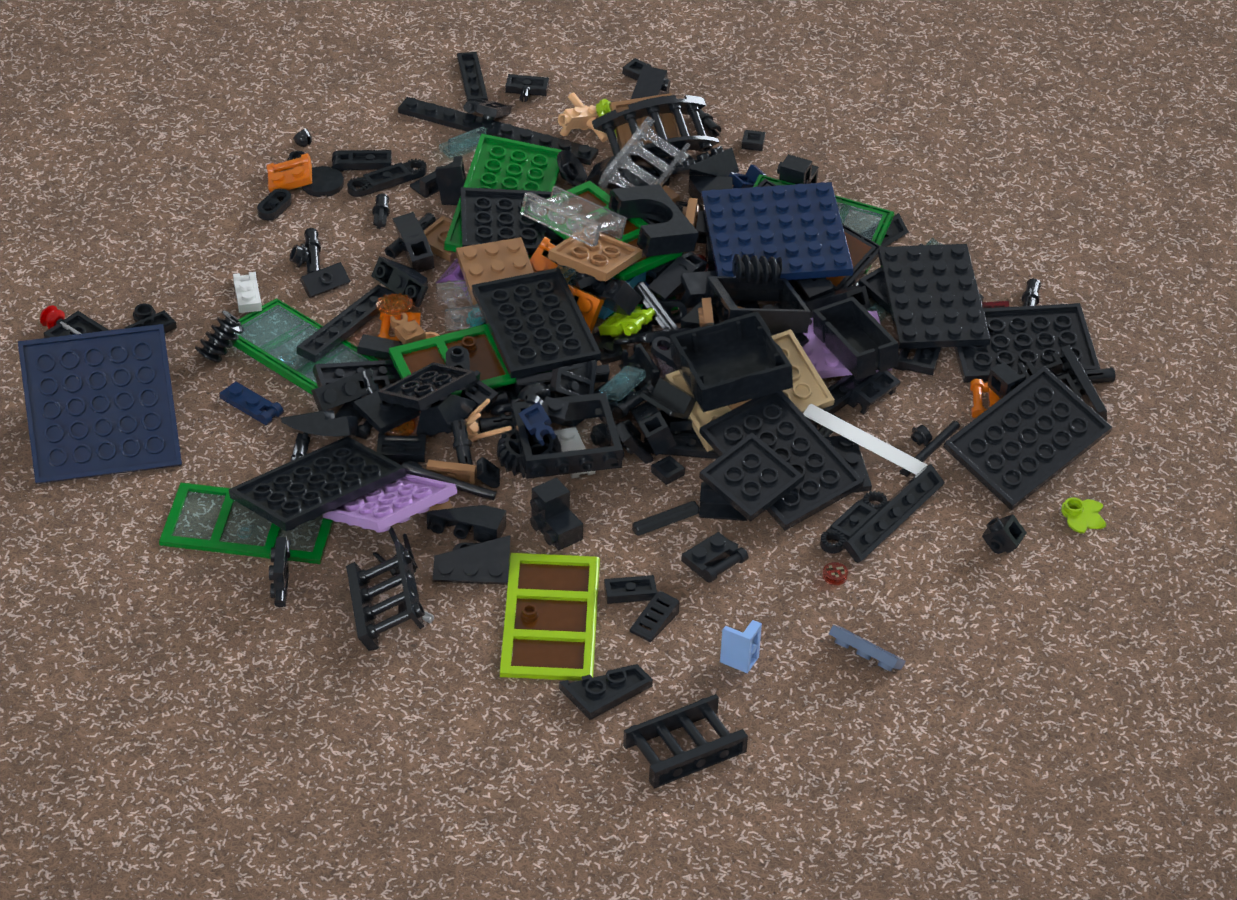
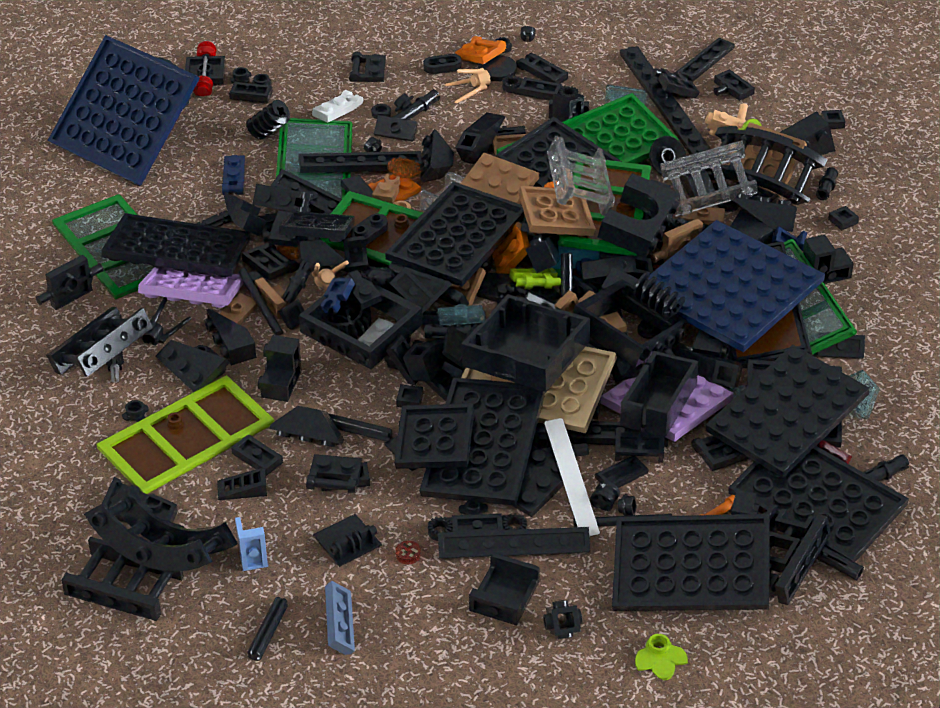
camera: 50 degrees right, 0 degrees up
(116, 319) = (241, 75): none -> black plate
(218, 241) = (373, 70): none -> black plate
(285, 275) = (380, 109): none -> black tile
(325, 200) = (479, 78): none -> light nougat plant
(329, 306) = (373, 145): none -> black plate
(381, 210) = (505, 106): black axle -> none
(486, 628) = (135, 410): none -> black plate
(637, 540) = (308, 424): none -> black slope
(682, 693) = (169, 544): none -> black fence
(784, 596) = (348, 539): none -> black hinge
(829, 693) = (267, 628): none -> black axle
(831, 513) = (473, 508): none -> black plate
(882, 418) = (623, 472): none -> black tile
(900, 438) = (605, 495): none -> black wheel
(934, 547) = (505, 589): none -> black panel

